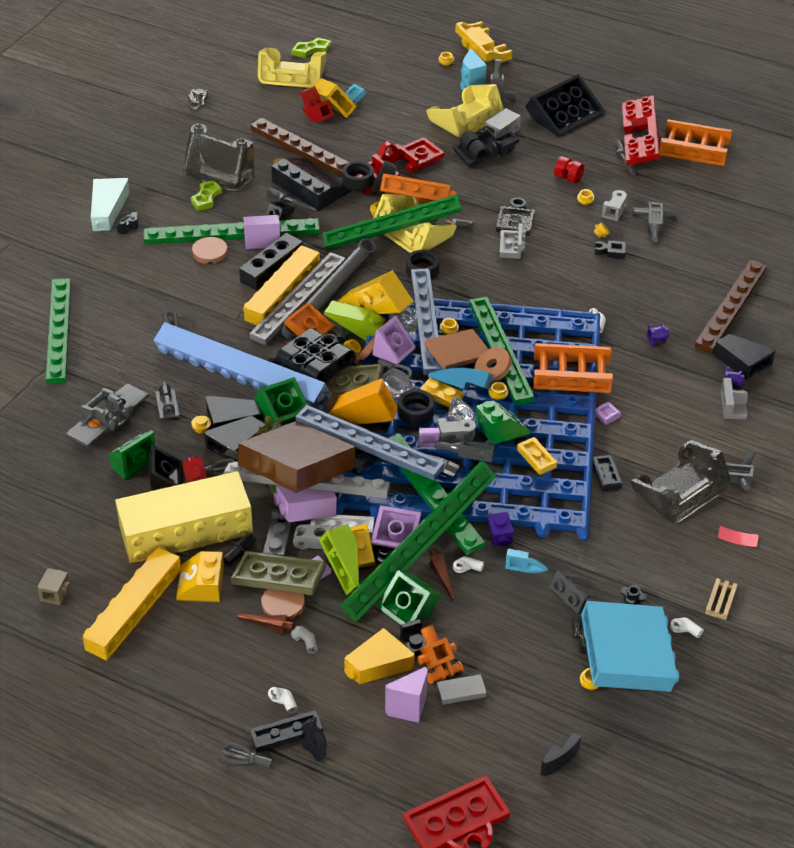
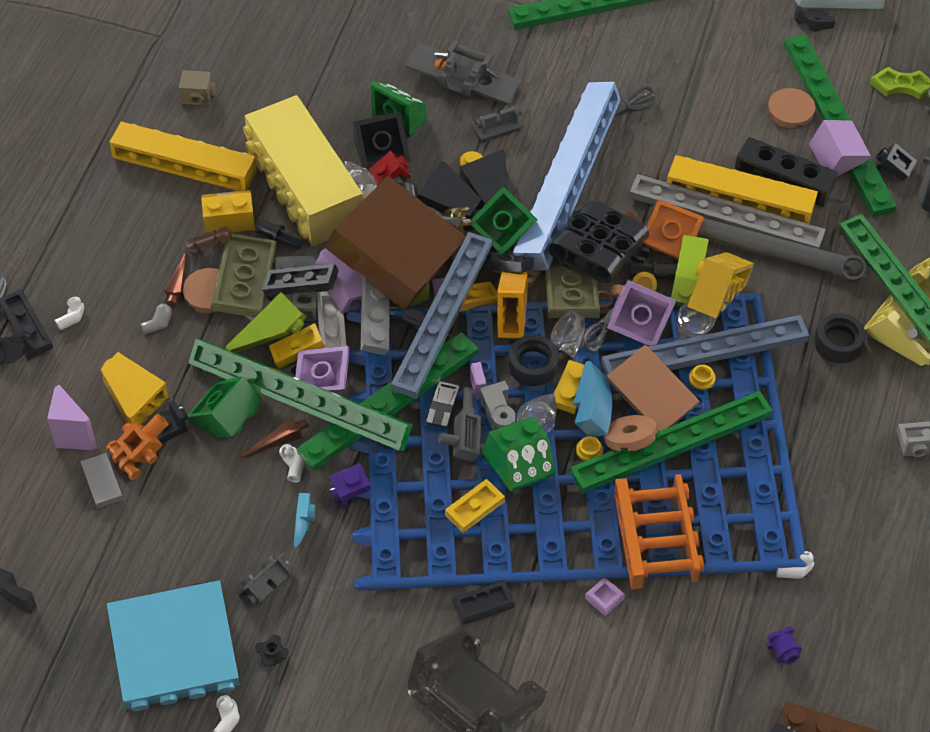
camera: 80 degrees right, 10 degrees up
(235, 591) = (209, 240): none -> reddish brown axle
(307, 526) = (300, 279): none -> black plate

